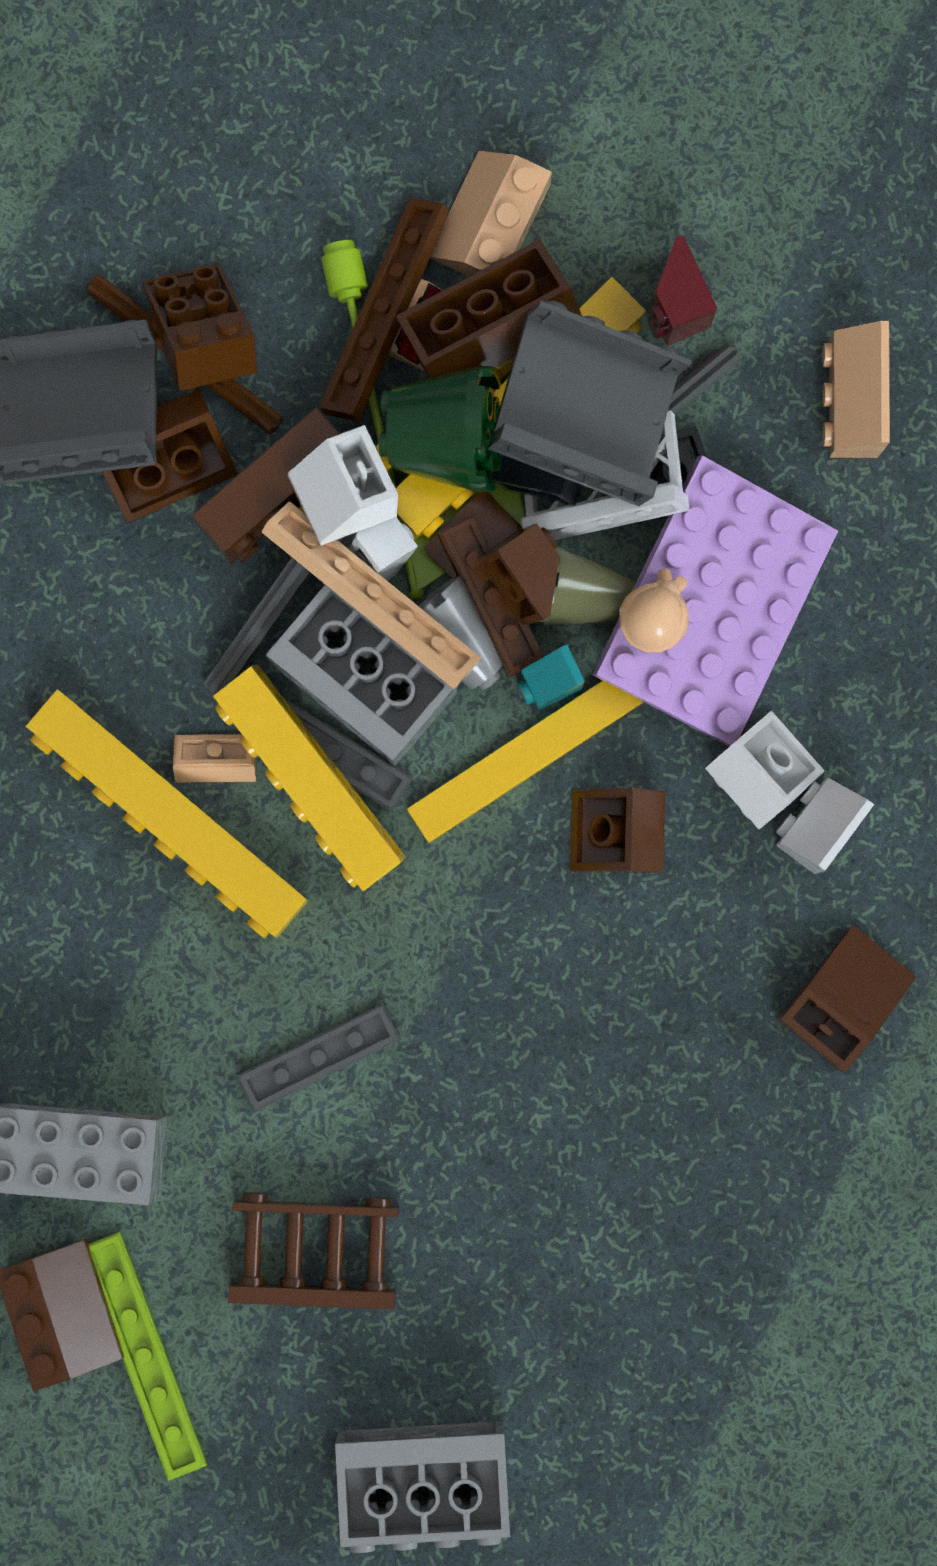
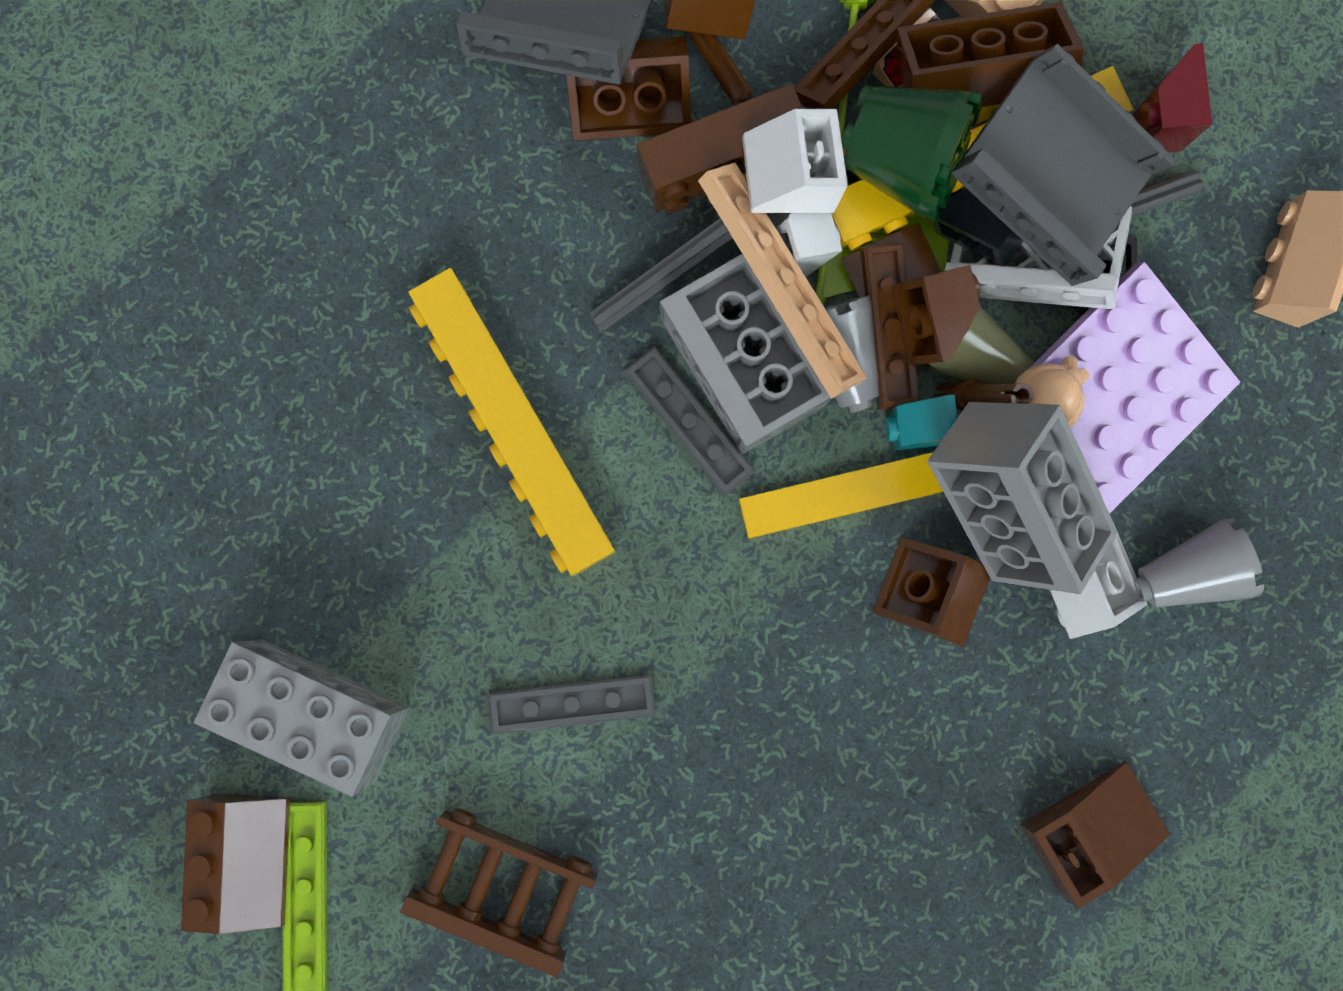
camera: 20 degrees right, 0 degrees up
(212, 759) = (575, 386): light nougat slope -> none
(308, 777) = (658, 435): yellow brick -> none
(589, 635) = (974, 391): none -> reddish brown pin
(659, 715) = (1024, 495): none -> light grey brick
(822, 825) = (1136, 658): white slope -> none
(856, 723) = (1203, 569): none -> light grey cone

